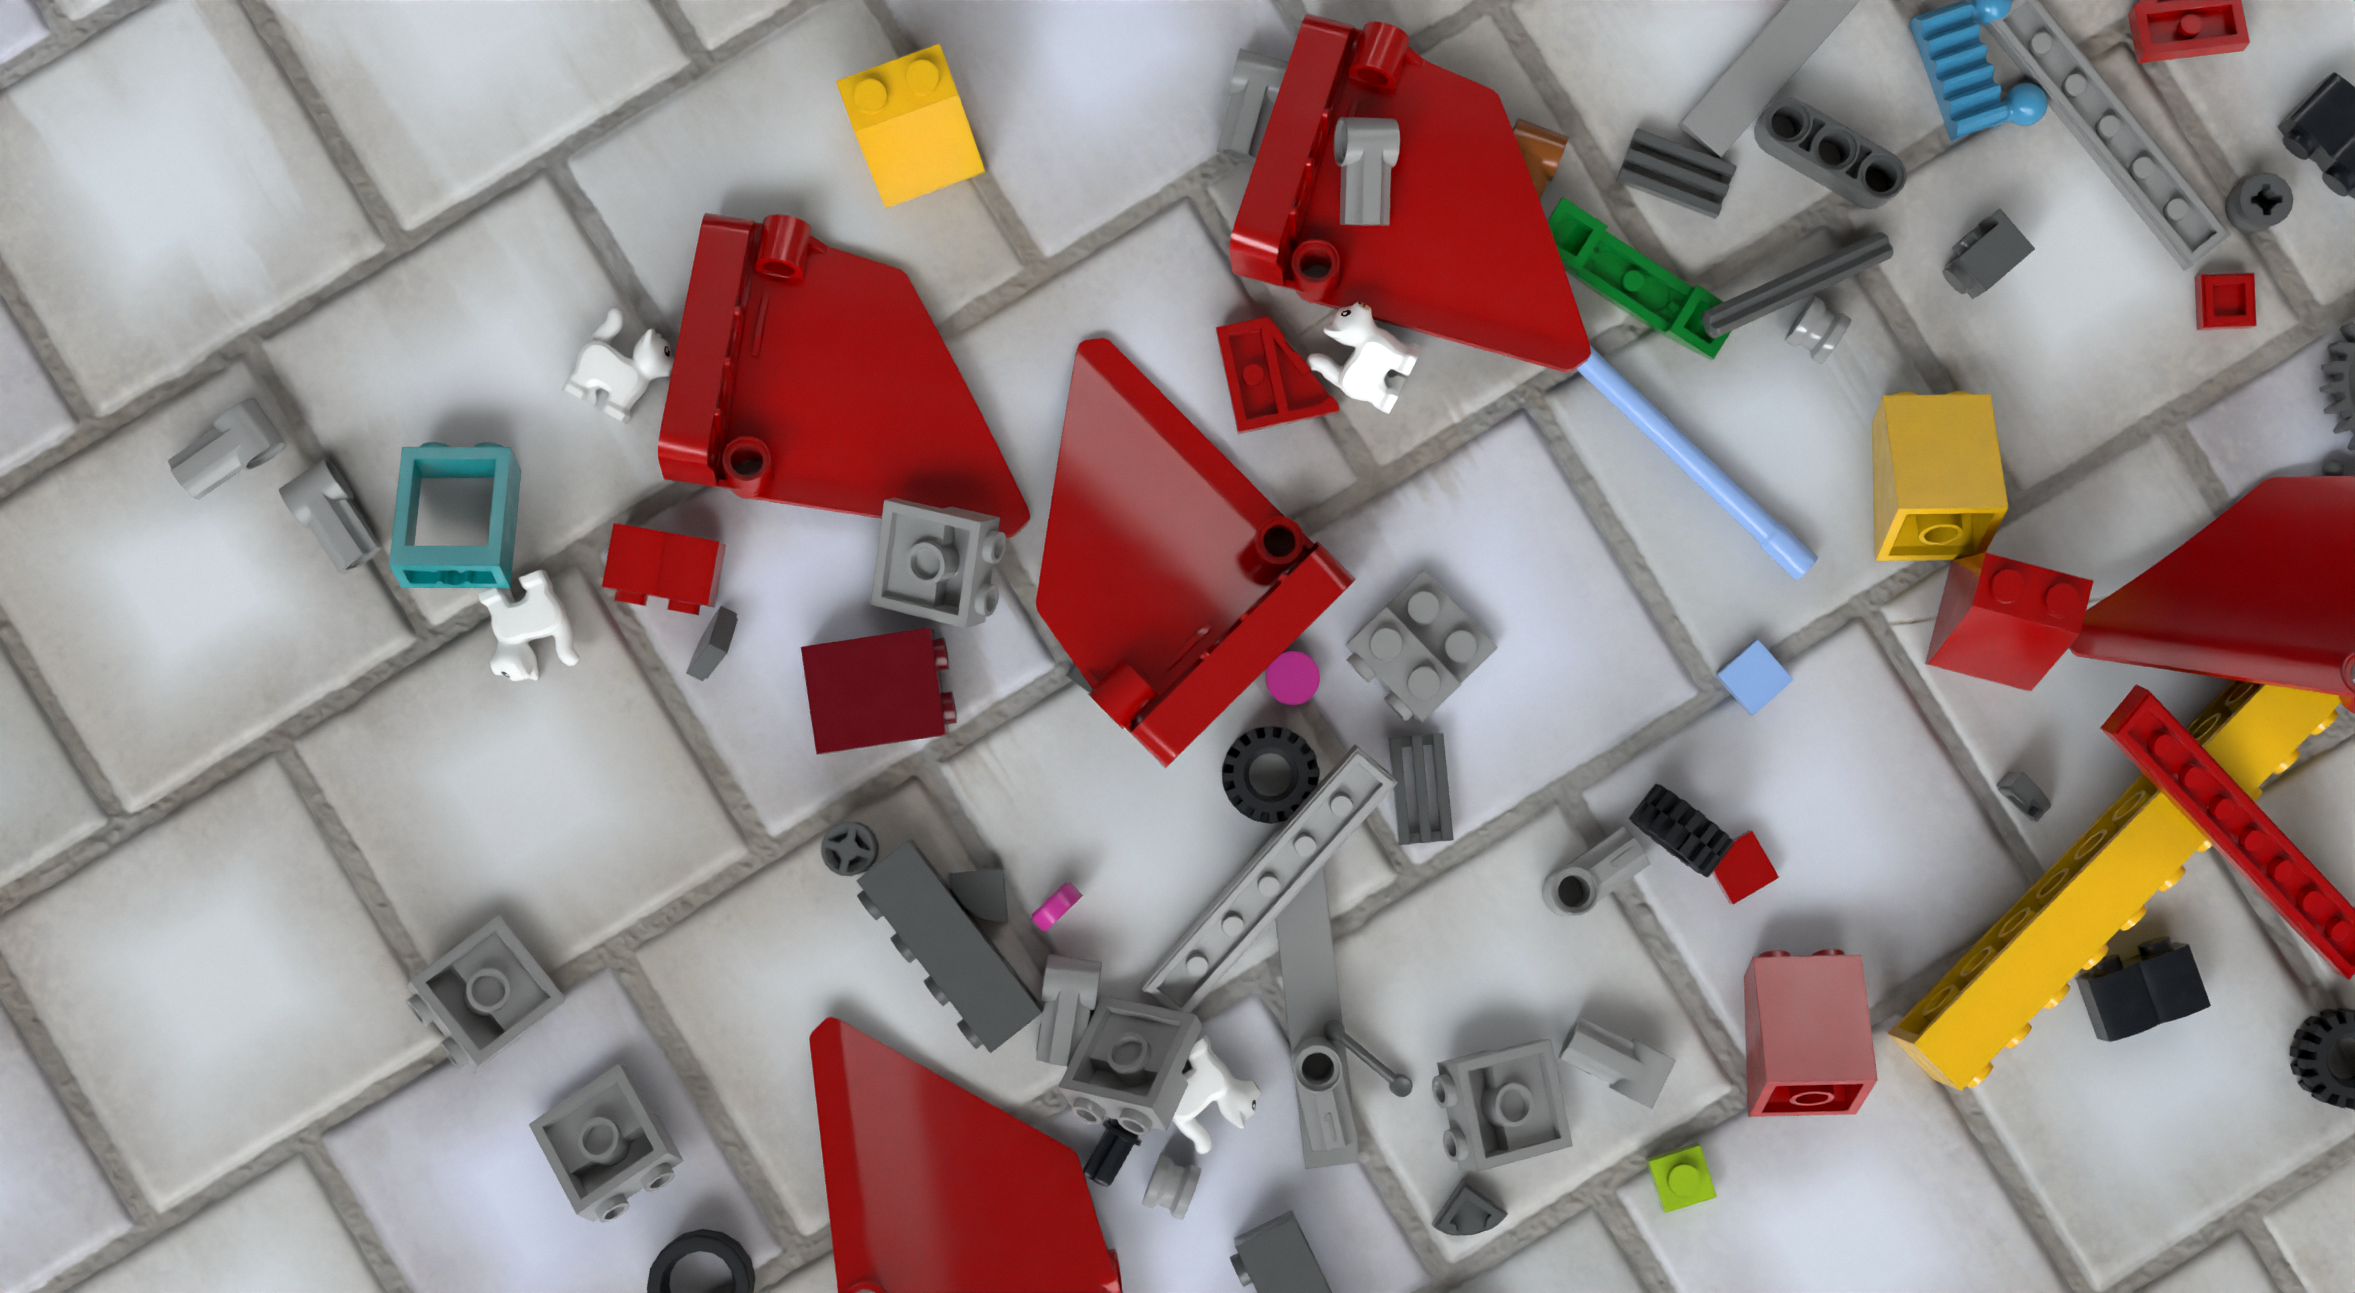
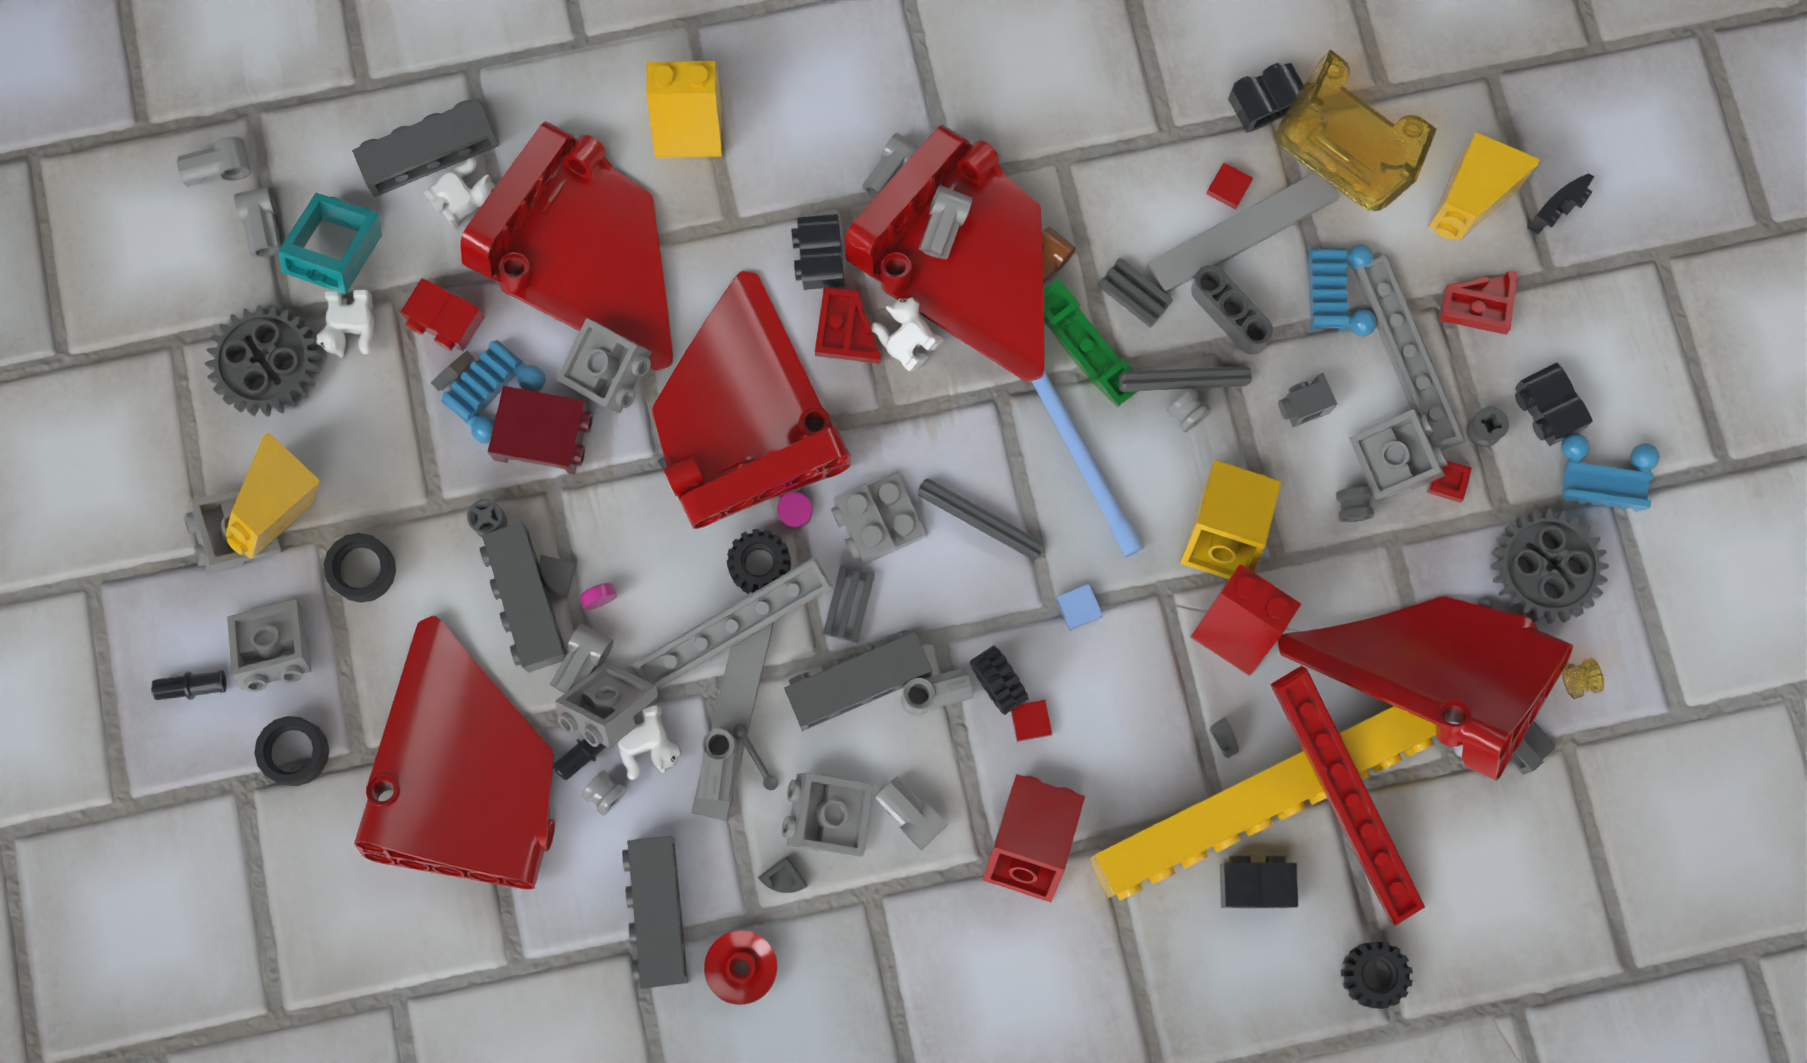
camera: 25 degrees right, 10 degrees down
(400, 767) = (290, 342): none -> dark grey gear
(513, 1241) = (189, 685): none -> black axle
(524, 938) = (270, 499): none -> yellow slope
(535, 315) = (425, 147): none -> dark grey brick
(651, 992) = (339, 551): none -> black tyre
(764, 647) = (484, 382): none -> dark azure gear
(1189, 273) = (819, 252): none -> black brick
(1477, 898) = (857, 680): none -> dark grey brick
(1567, 597) = (980, 519): none -> dark grey axle
(1681, 1178) = (925, 903): lime plate -> none
(2104, 388) = (1355, 504): none -> dark grey wheel
(2145, 293) = (1398, 455): none -> light grey plate

